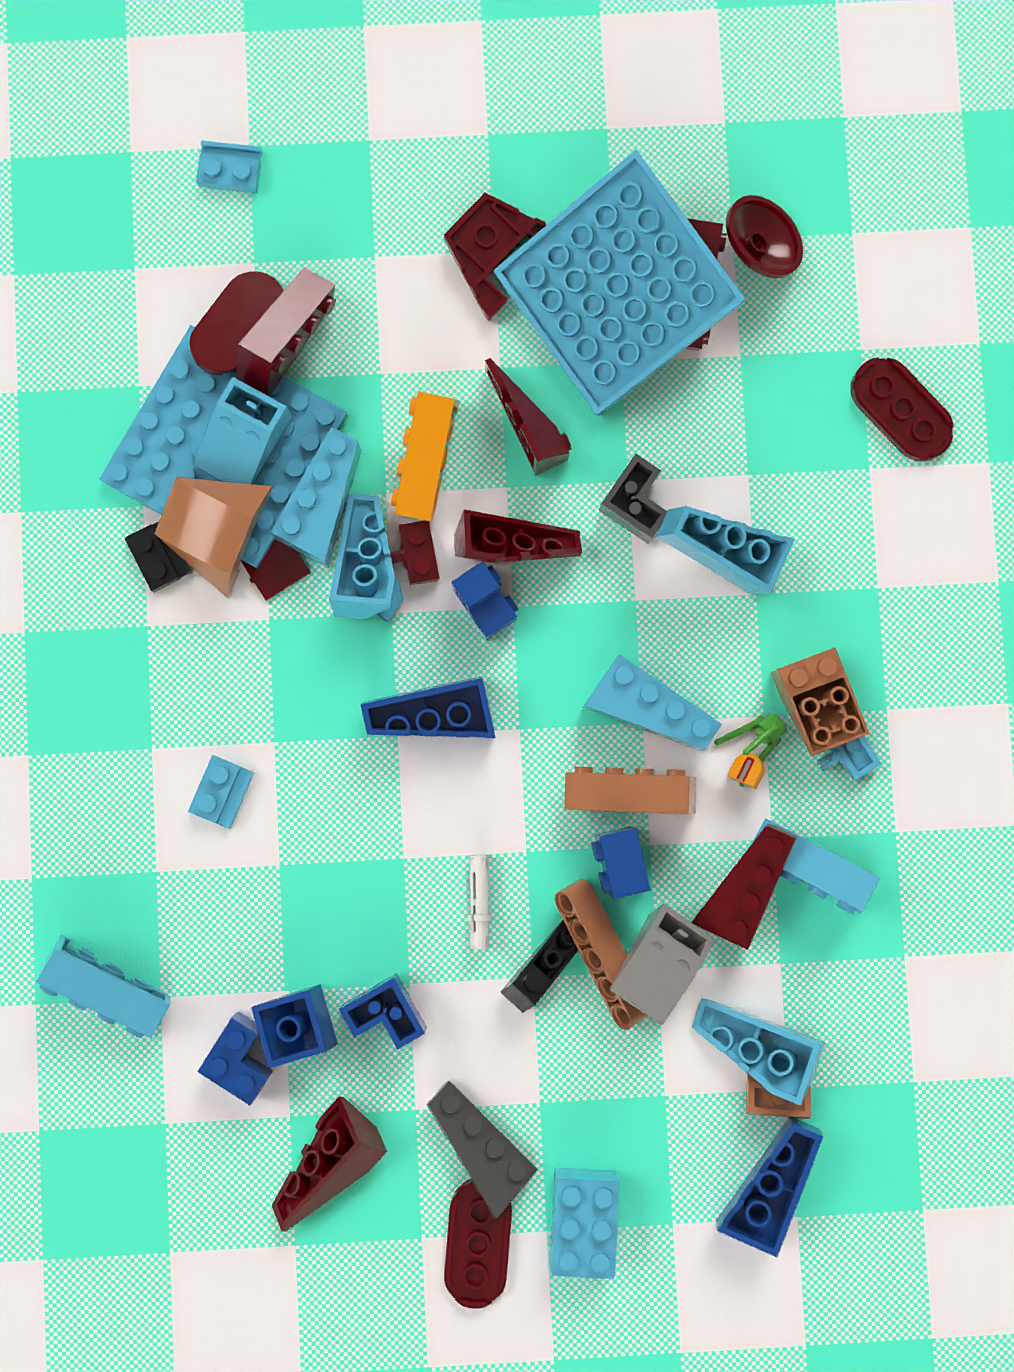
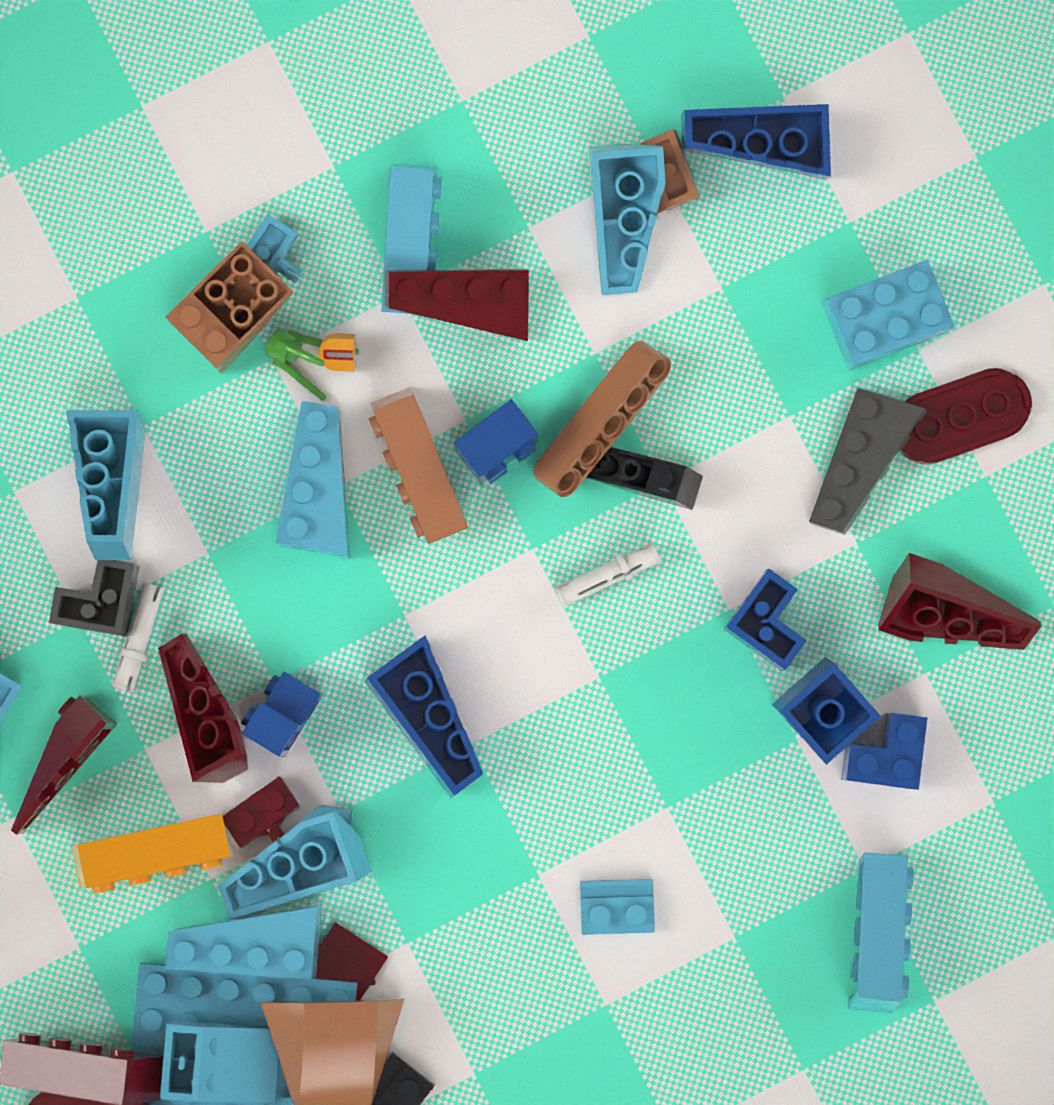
camera: 110 degrees left, 0 degrees up
(593, 518) = (138, 637): none -> white pin
(661, 963) = (582, 353): light grey slope -> none

